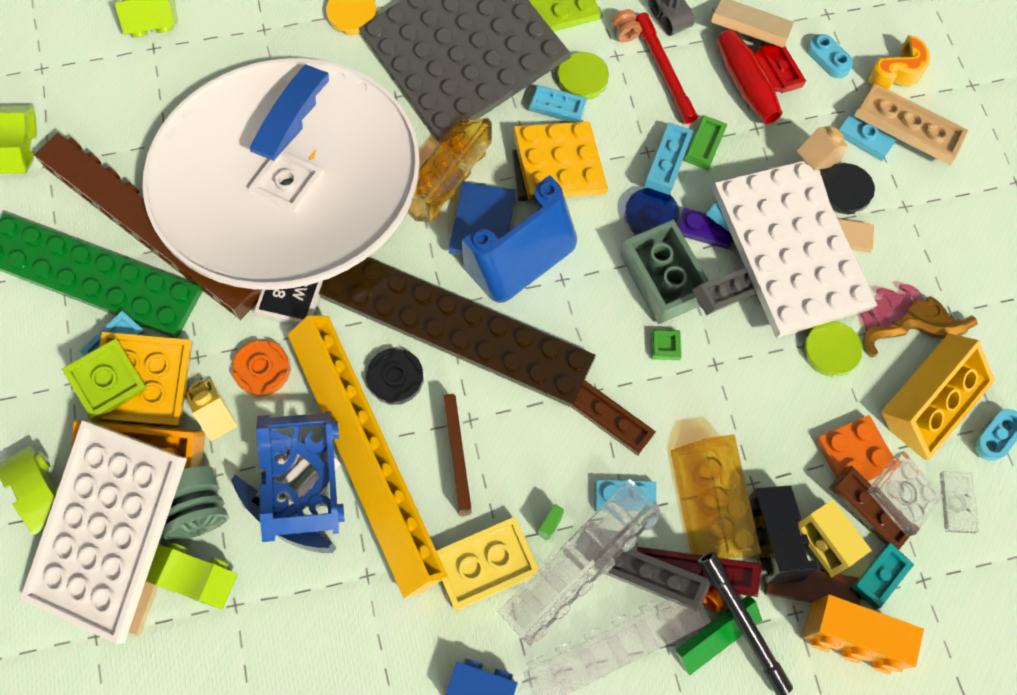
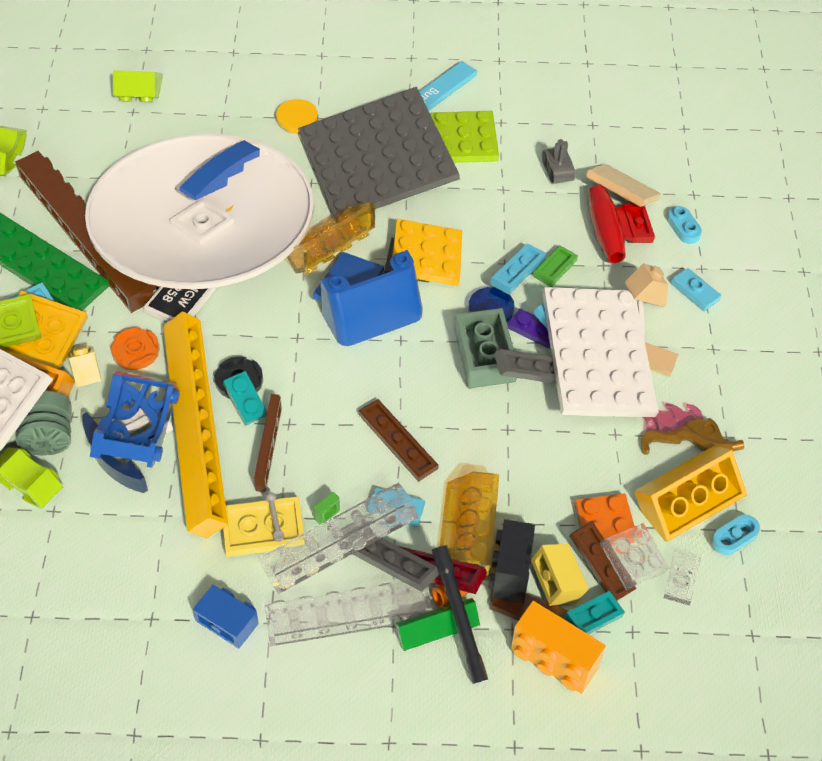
camera: 15 degrees right, 15 degrees down
(412, 404) = (245, 398): none -> teal plate
(461, 329) = (303, 354): dark brown plate -> none
(509, 573) = (278, 534): none -> light grey hinge
(558, 104) = (440, 212): medium azure plate -> none
(583, 75) = (469, 197): lime tile -> none
(626, 26) = (516, 167): nougat wheel -> none
(665, 344) = (469, 405): bright green tile -> none
(681, 100) = (545, 231): red piece -> none
(833, 349) = (611, 439): lime tile -> none
(848, 188) = (665, 324): black tile -> none
(902, 70) = (740, 245): yellow animal -> none
(911, 123) = (736, 286): tan tile -> none

